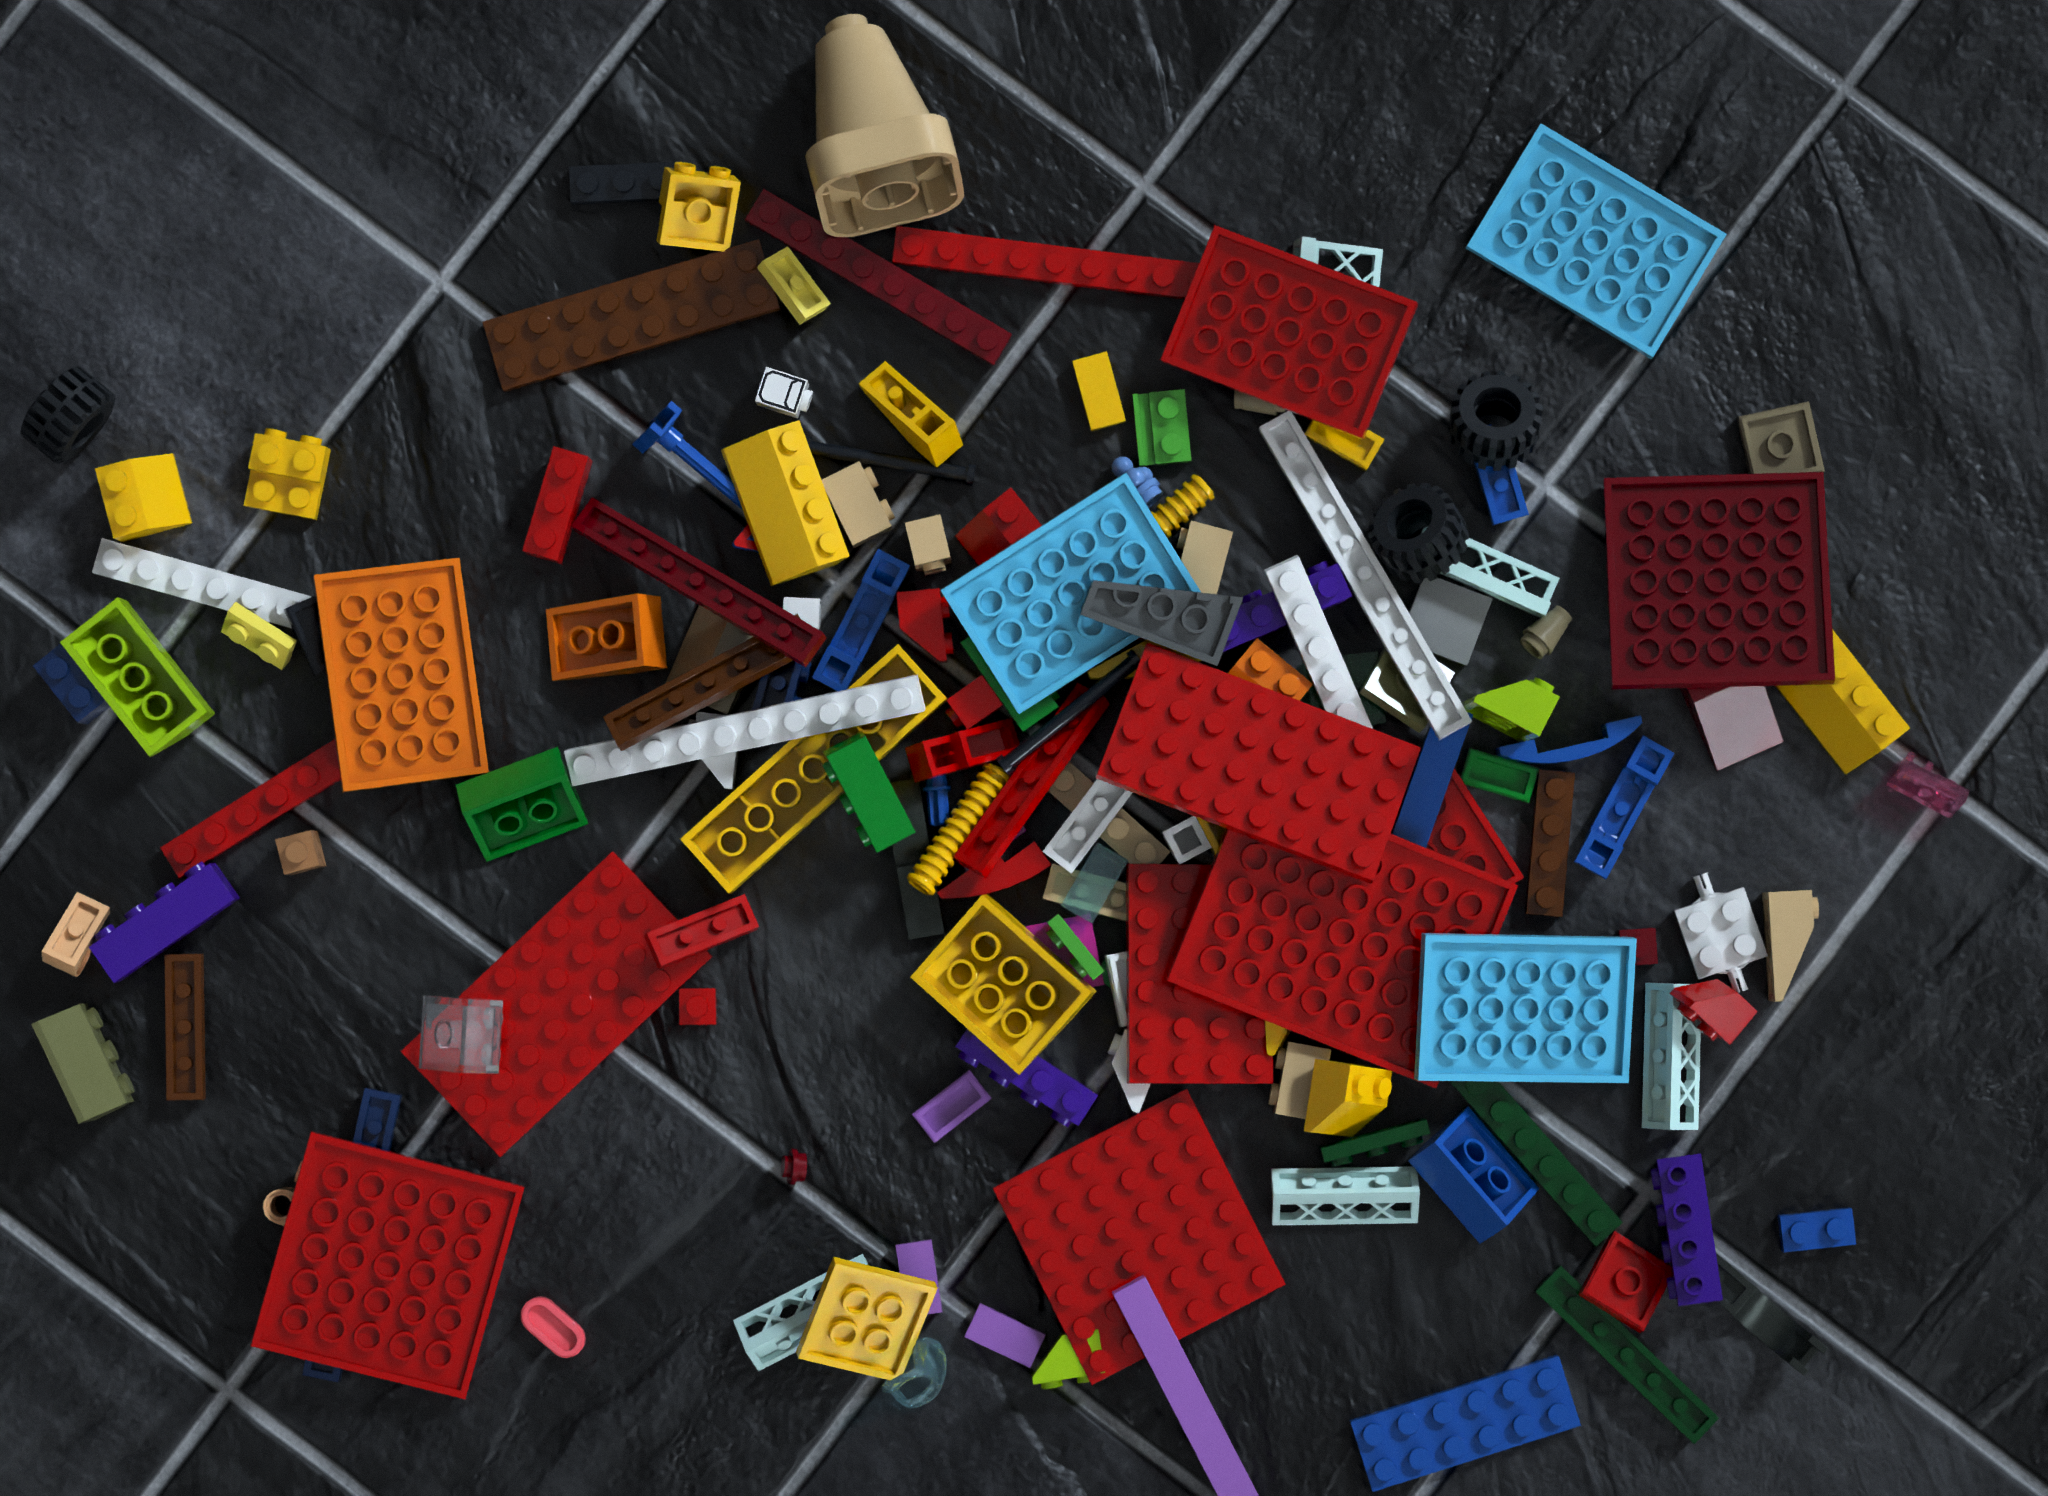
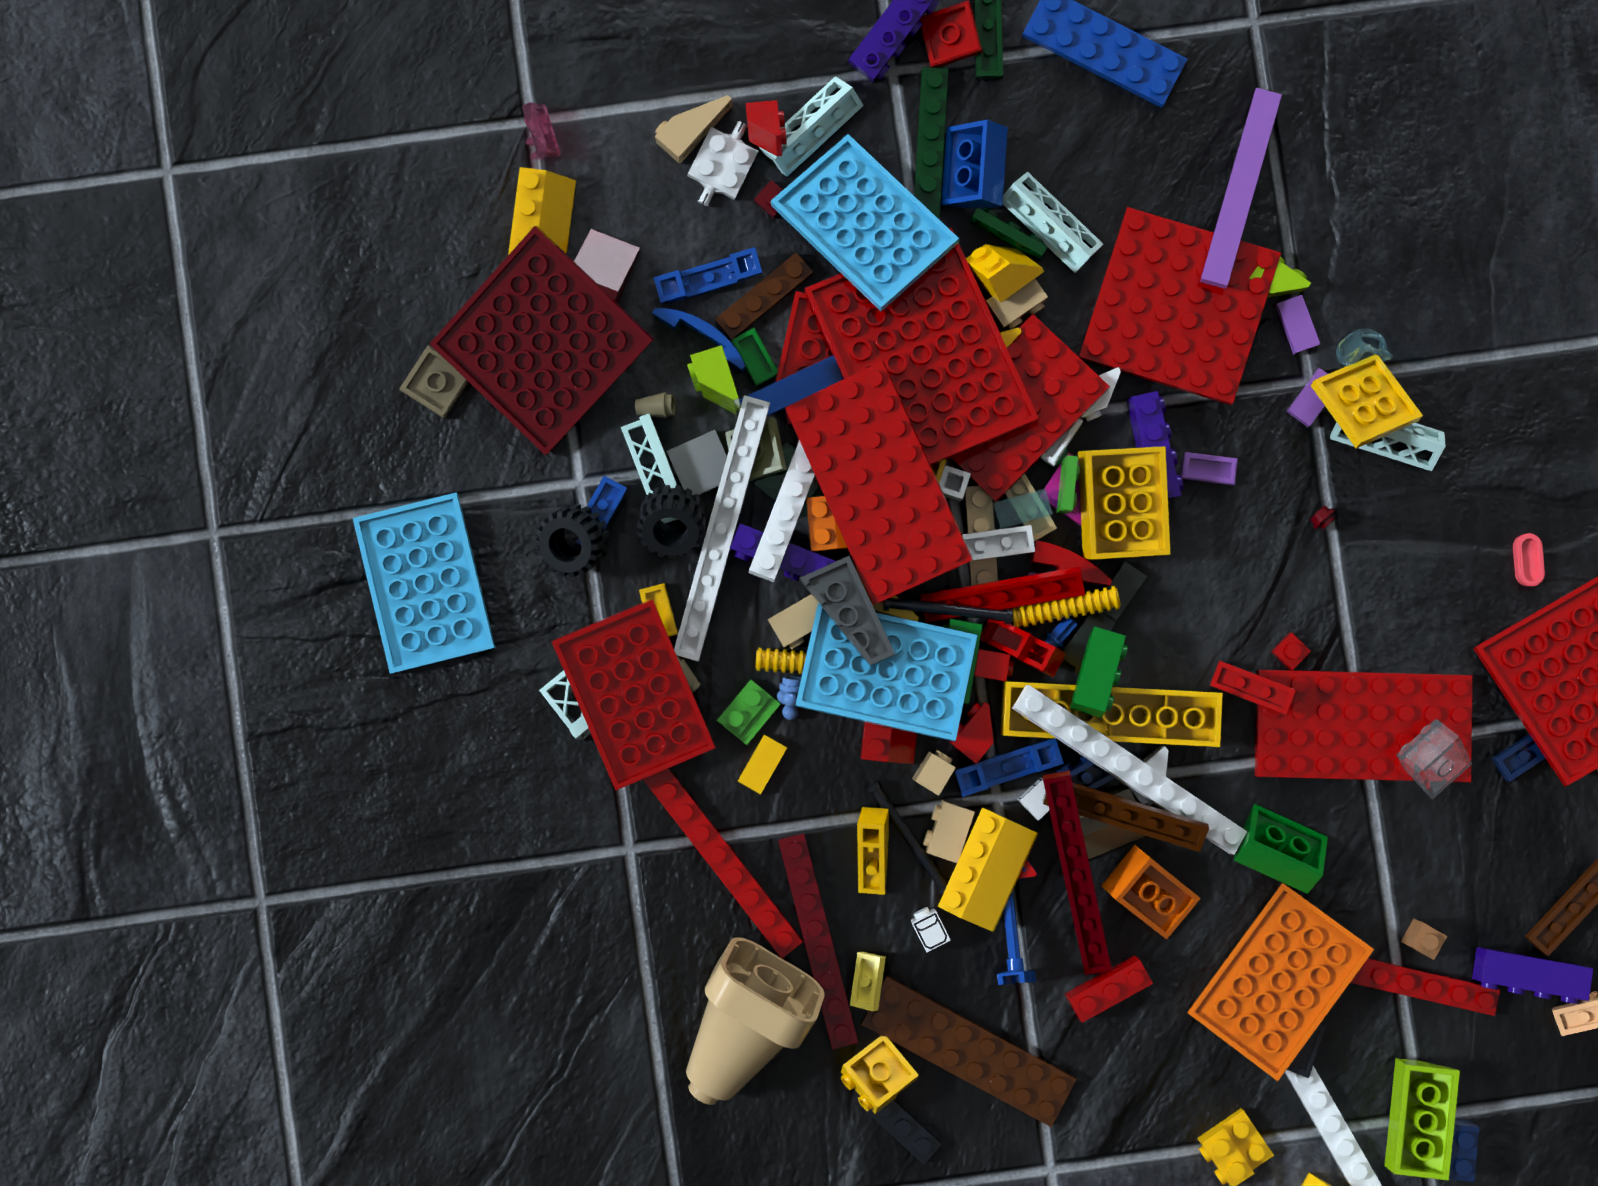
camera: 135 degrees left, 0 degrees up
(258, 636) = (1334, 1078): light yellow plate -> none

